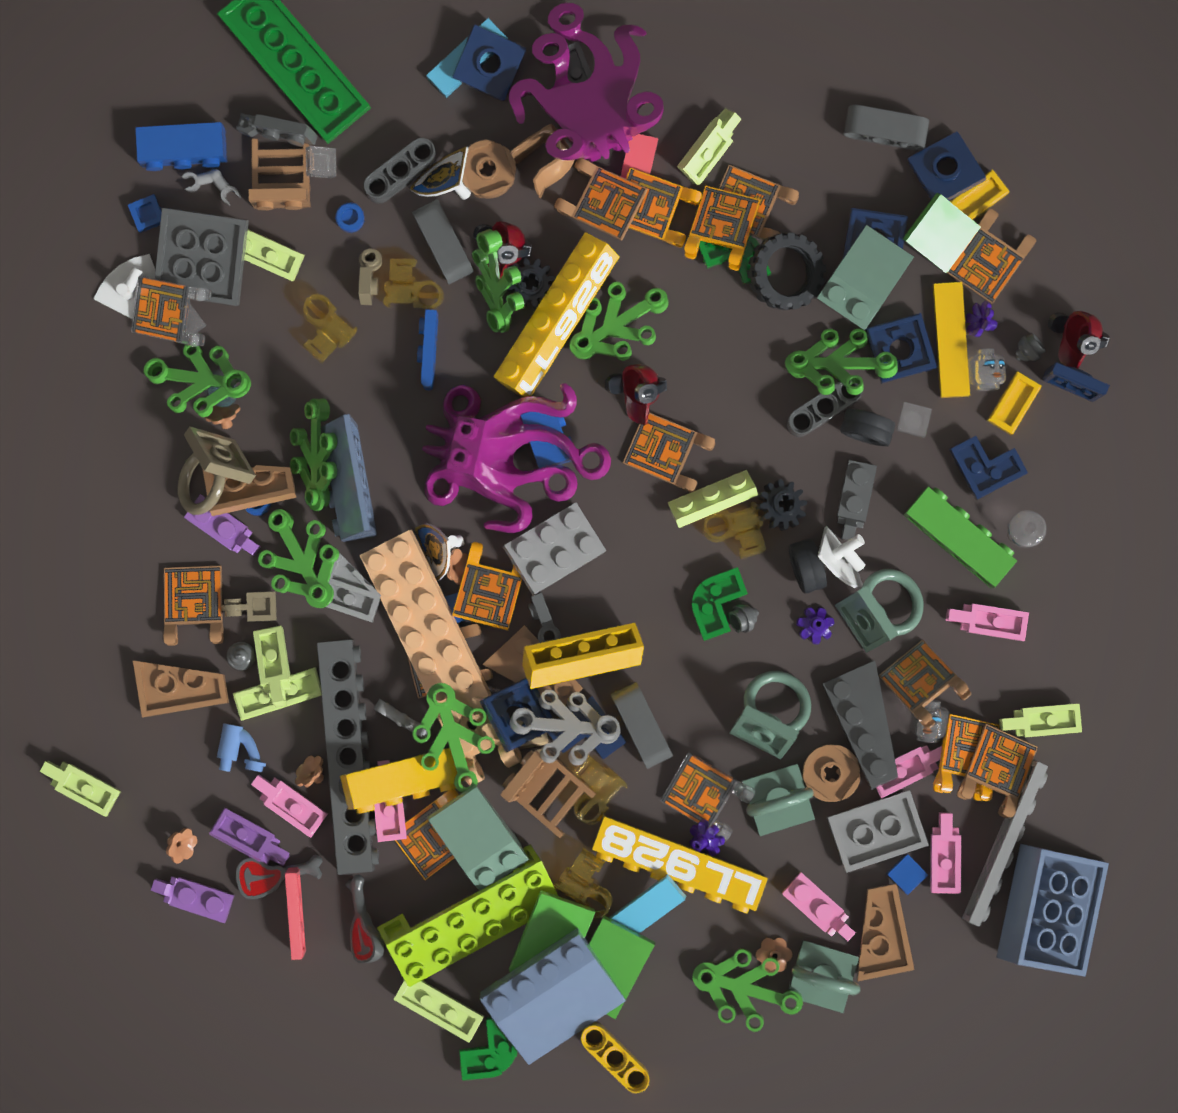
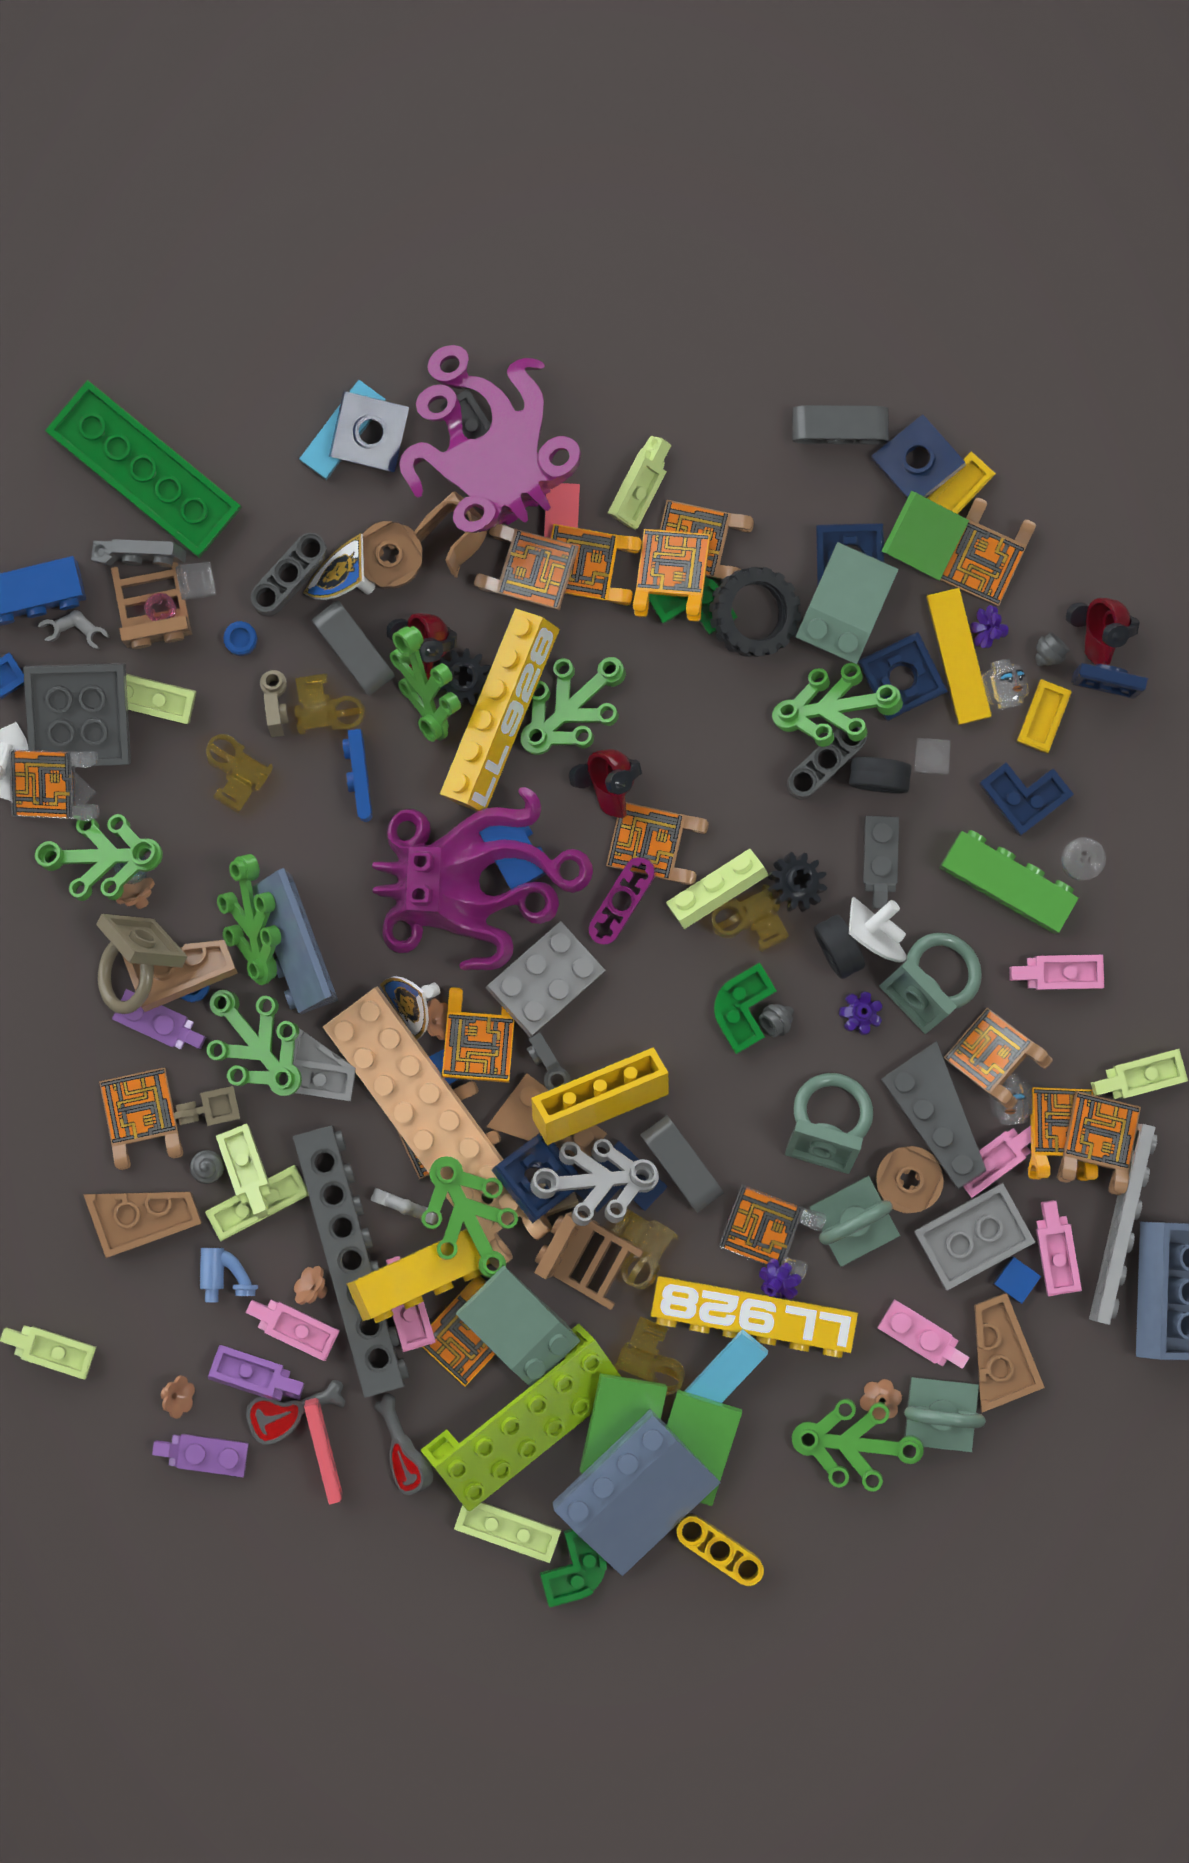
camera: 10 degrees left, 0 degrees up
(286, 170) = (157, 599): none -> clear pink bush
(621, 515) = (626, 874): none -> magenta beam

